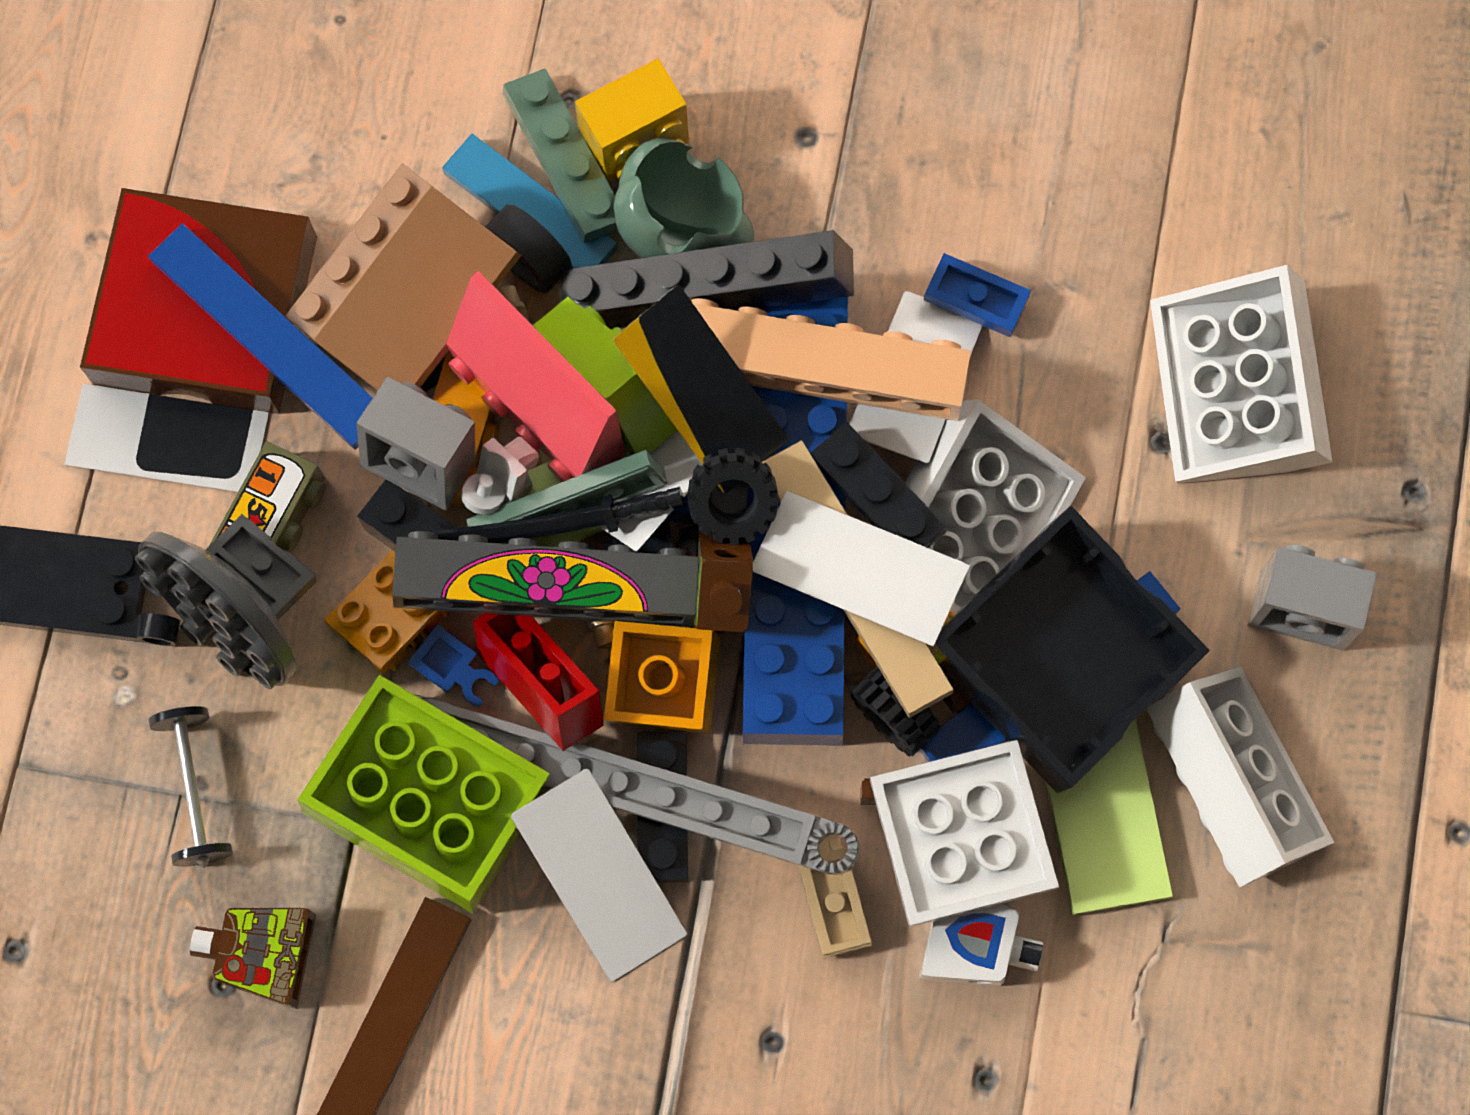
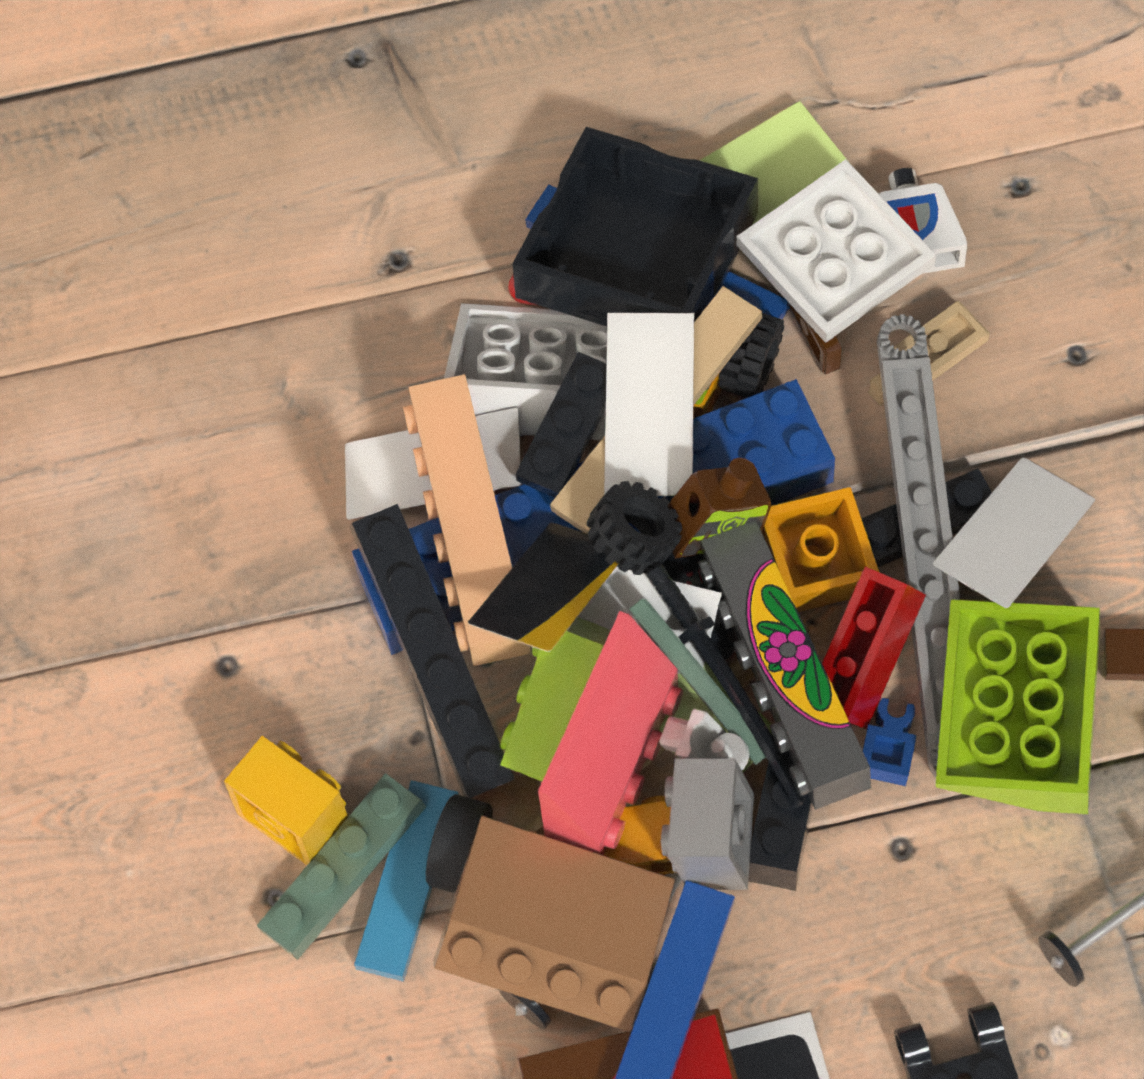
camera: 110 degrees left, 10 degrees down
(234, 589) = (925, 932): dark grey bracket -> none
(277, 495) = (838, 974): brick -> none
(374, 625) = (870, 829): light orange hinge -> none
(678, 203) = (361, 718): sand green piece -> none
(977, 295) = (328, 450): blue plate -> none
(1239, 775) = (681, 80): white slope -> none
(1241, 378) = (318, 212): white slope -> none
(1312, 597) = (496, 79): light grey brick -> none

